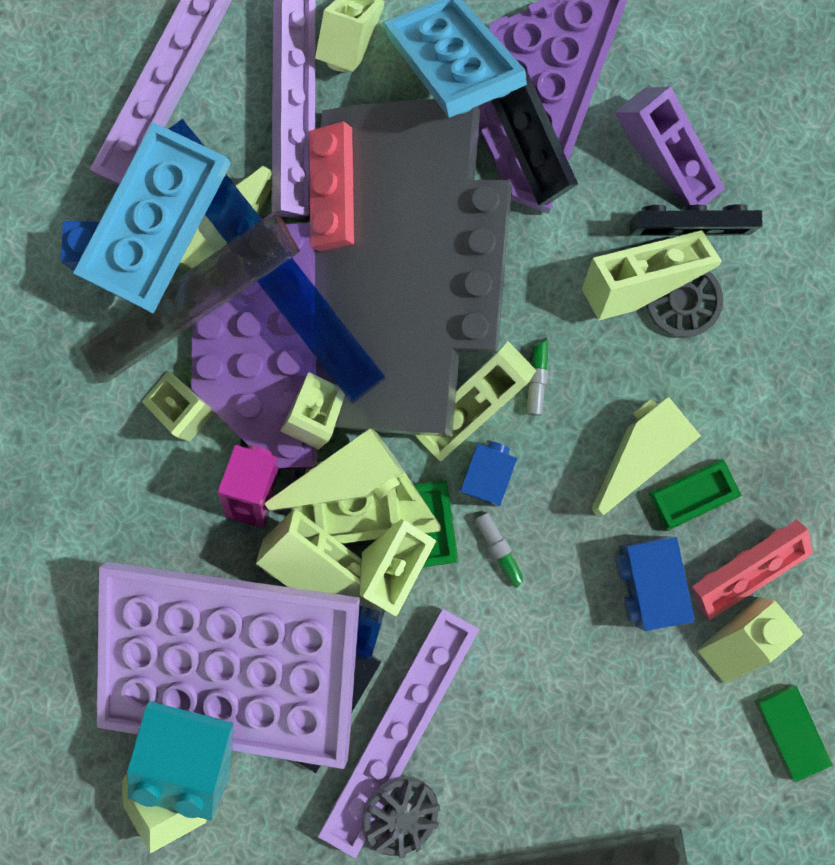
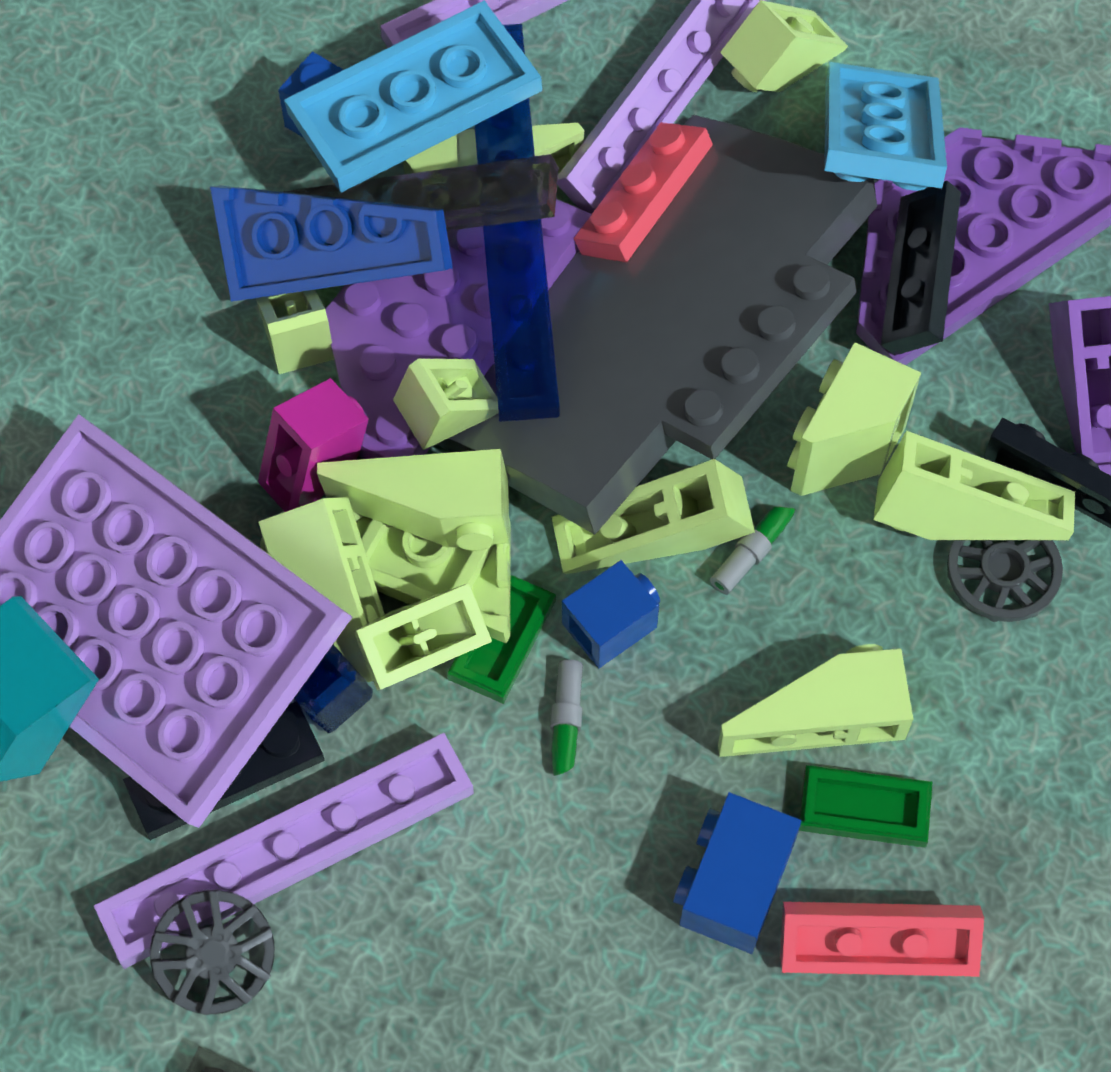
camera: 35 degrees right, 20 degrees down
(160, 352) = (314, 242): none -> blue wing
(556, 264) = (854, 423): none -> yellowish green slope
(750, 640) = (818, 1022): yellowish green slope -> none

